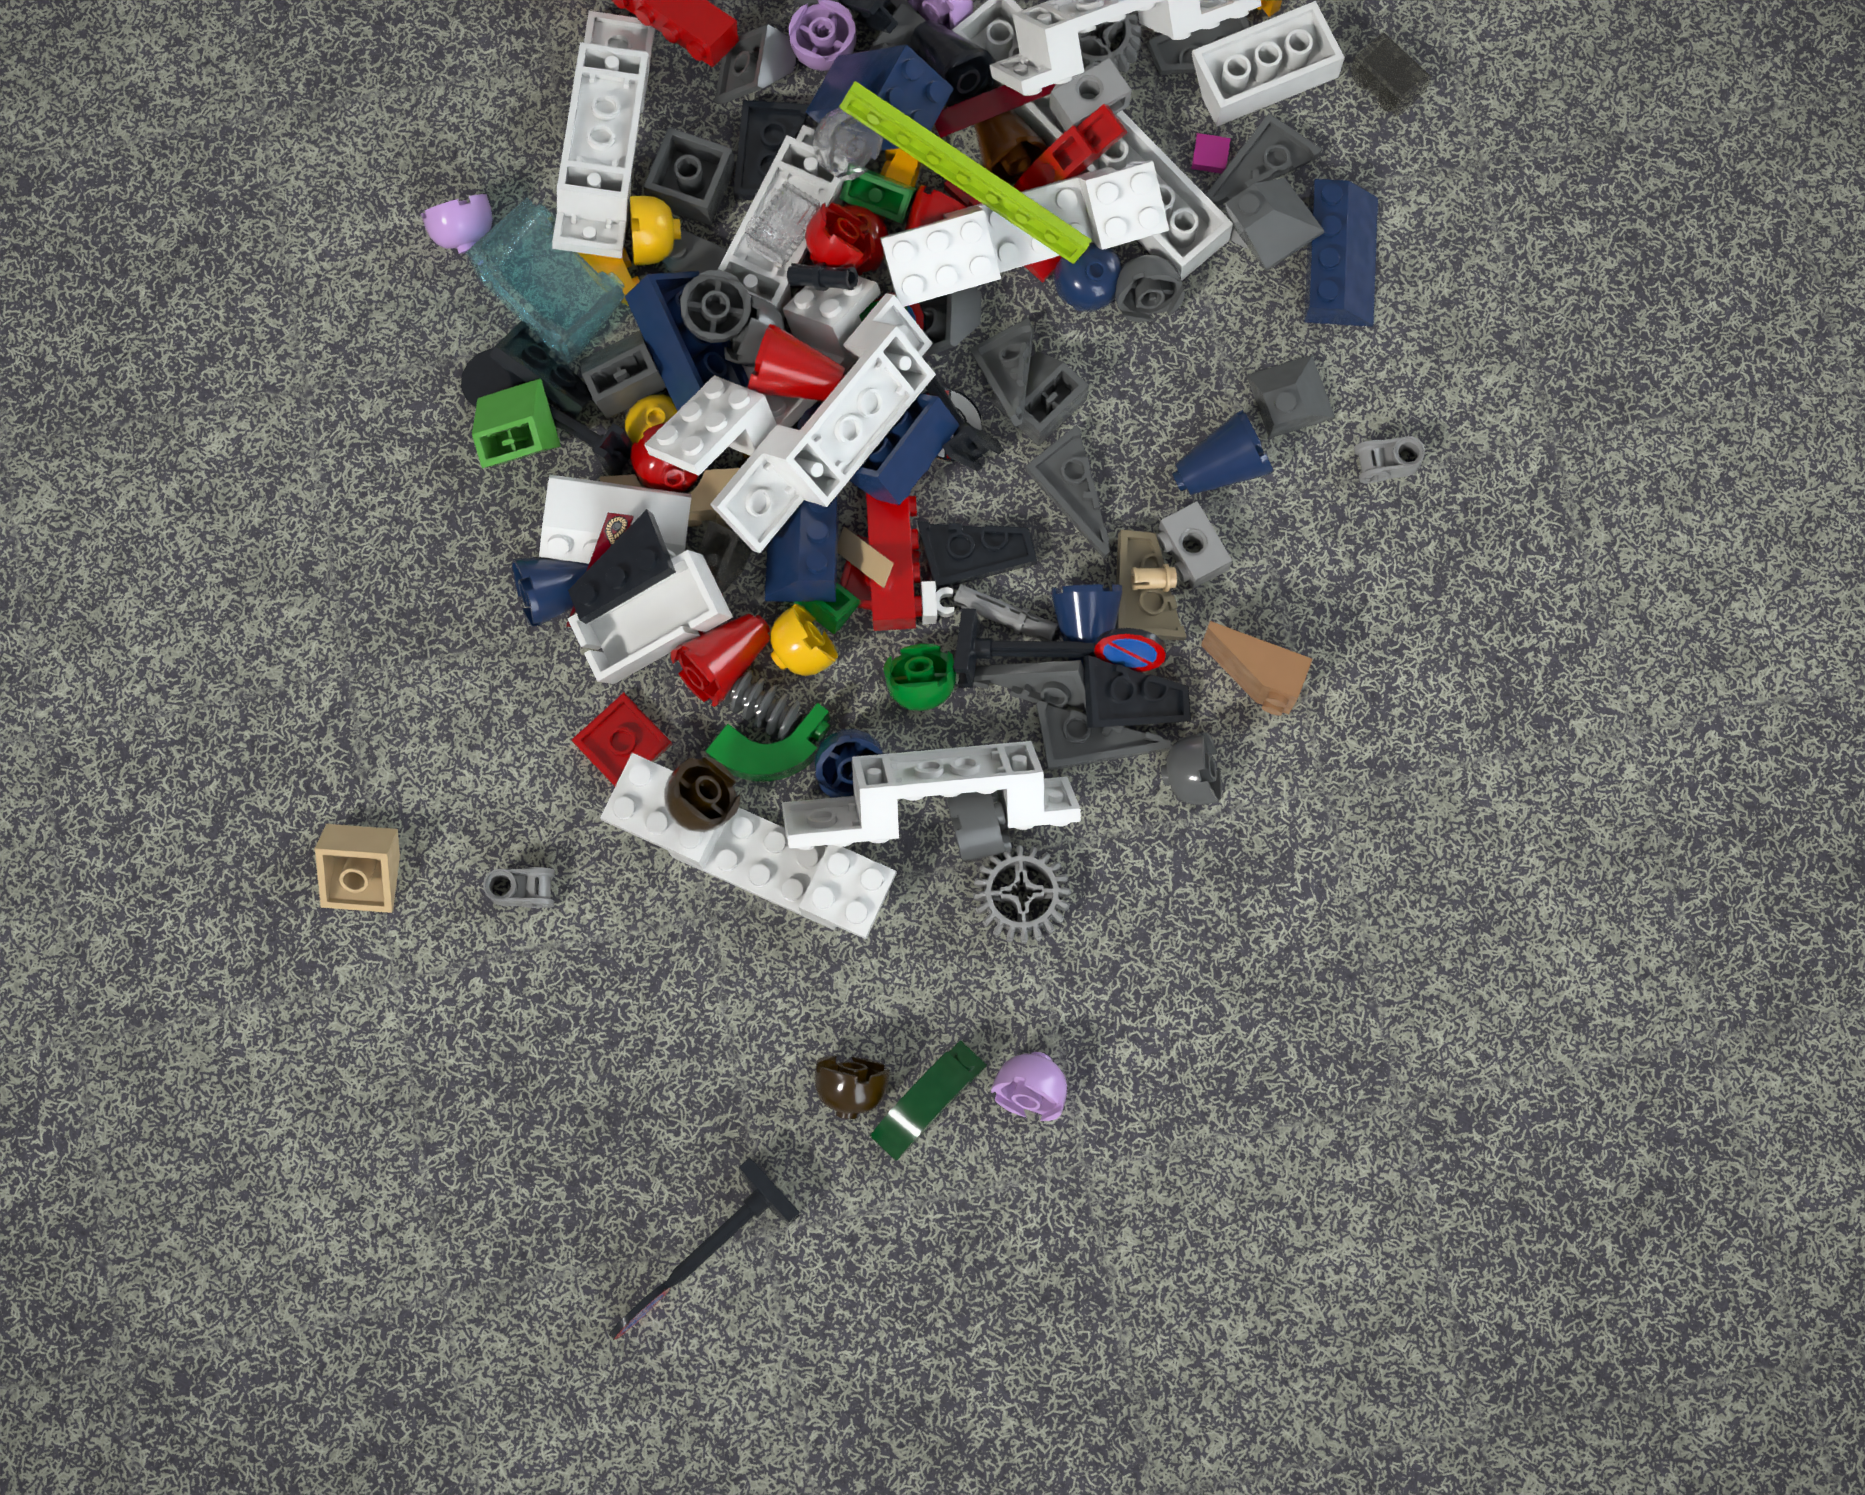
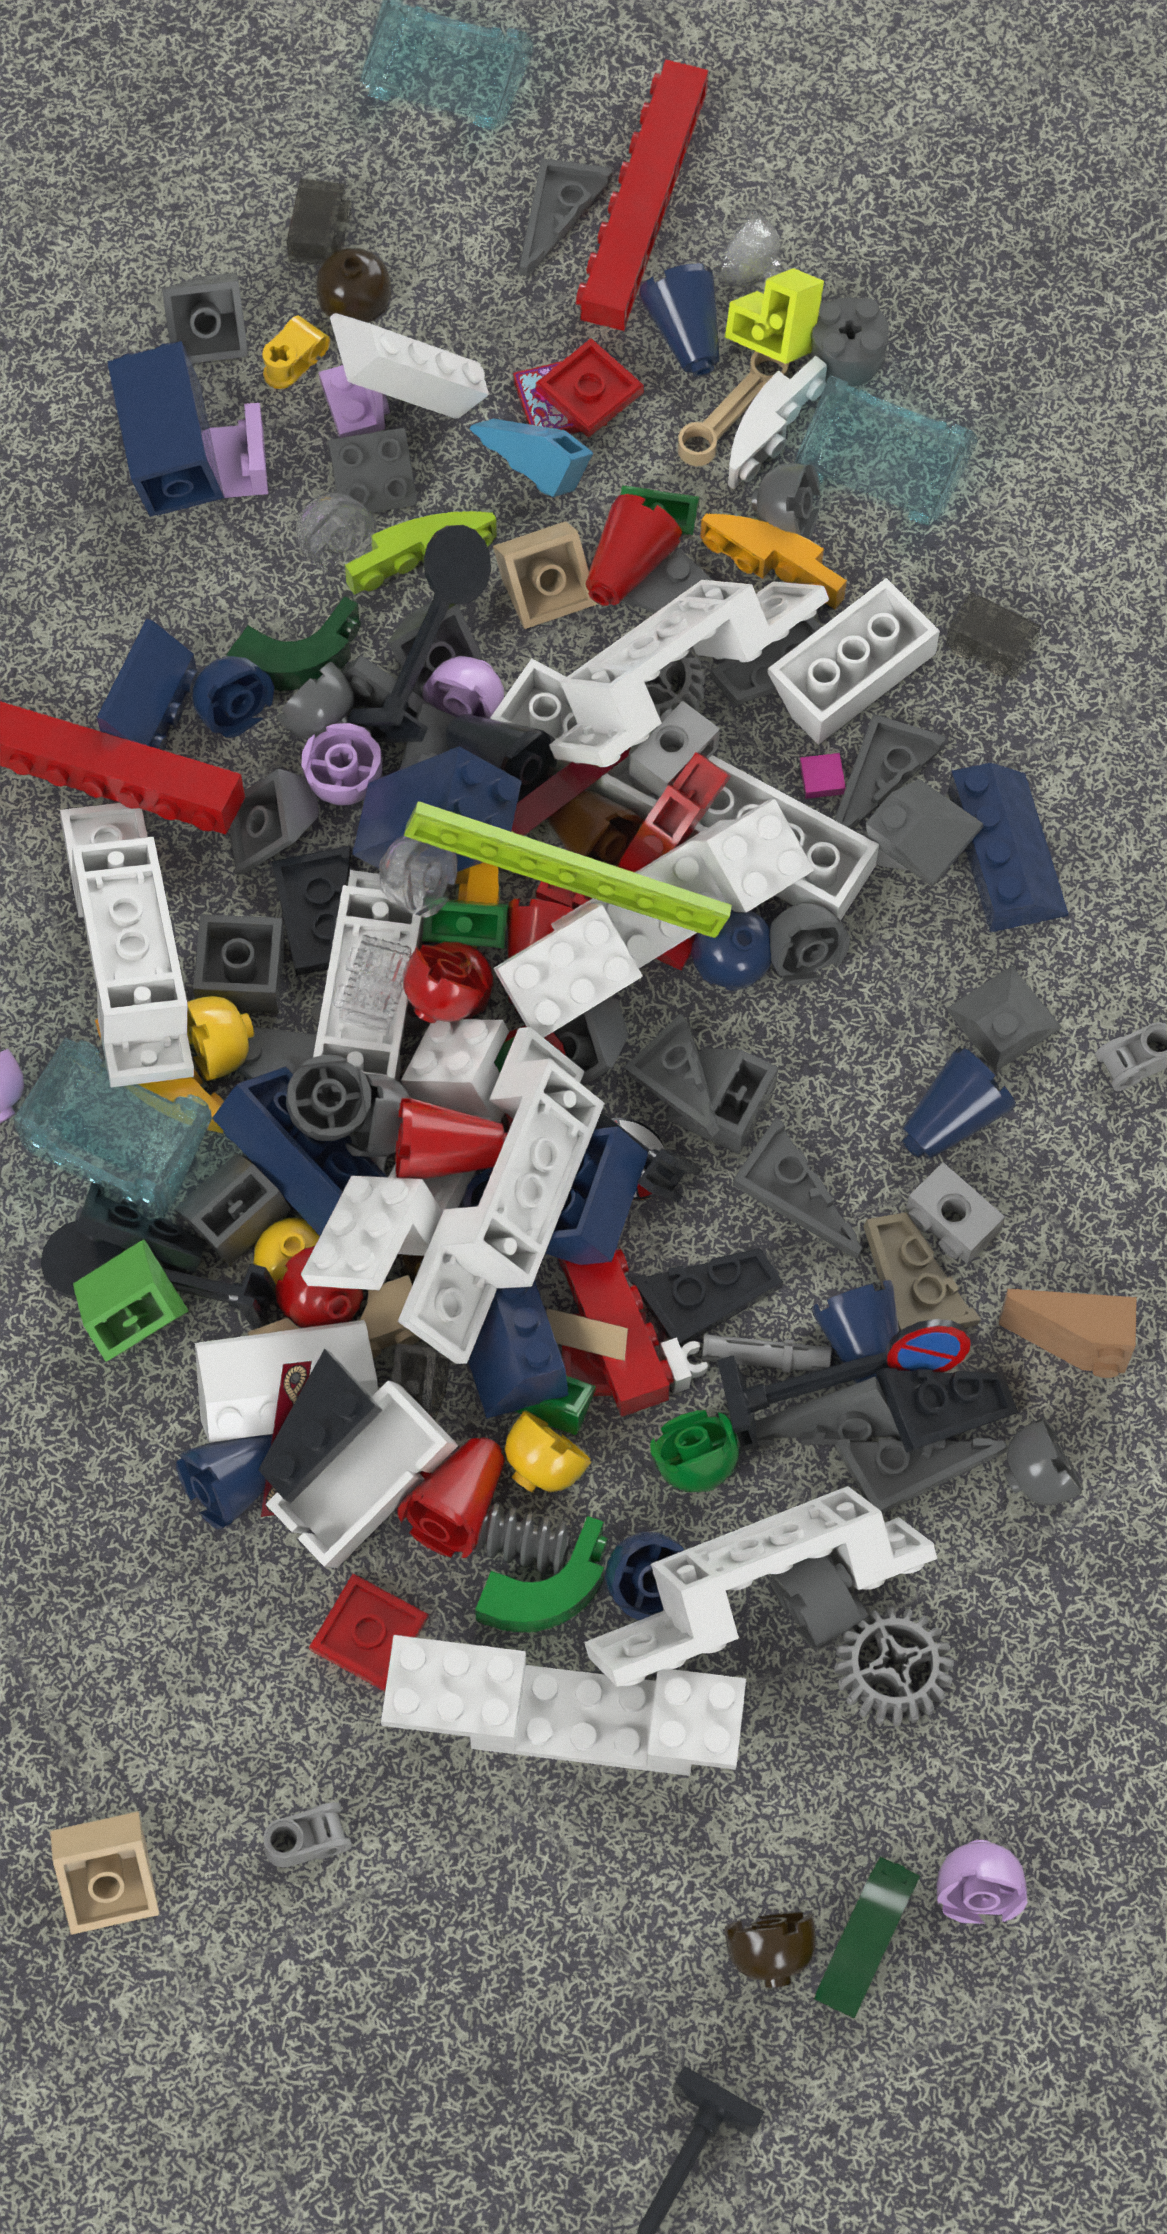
camera: 20 degrees left, 10 degrees down
(701, 795) = (498, 1655): dark brown cylinder -> none
(822, 276) = (439, 1030): black pin -> none
(1154, 578) = (923, 1262): tan pin -> none

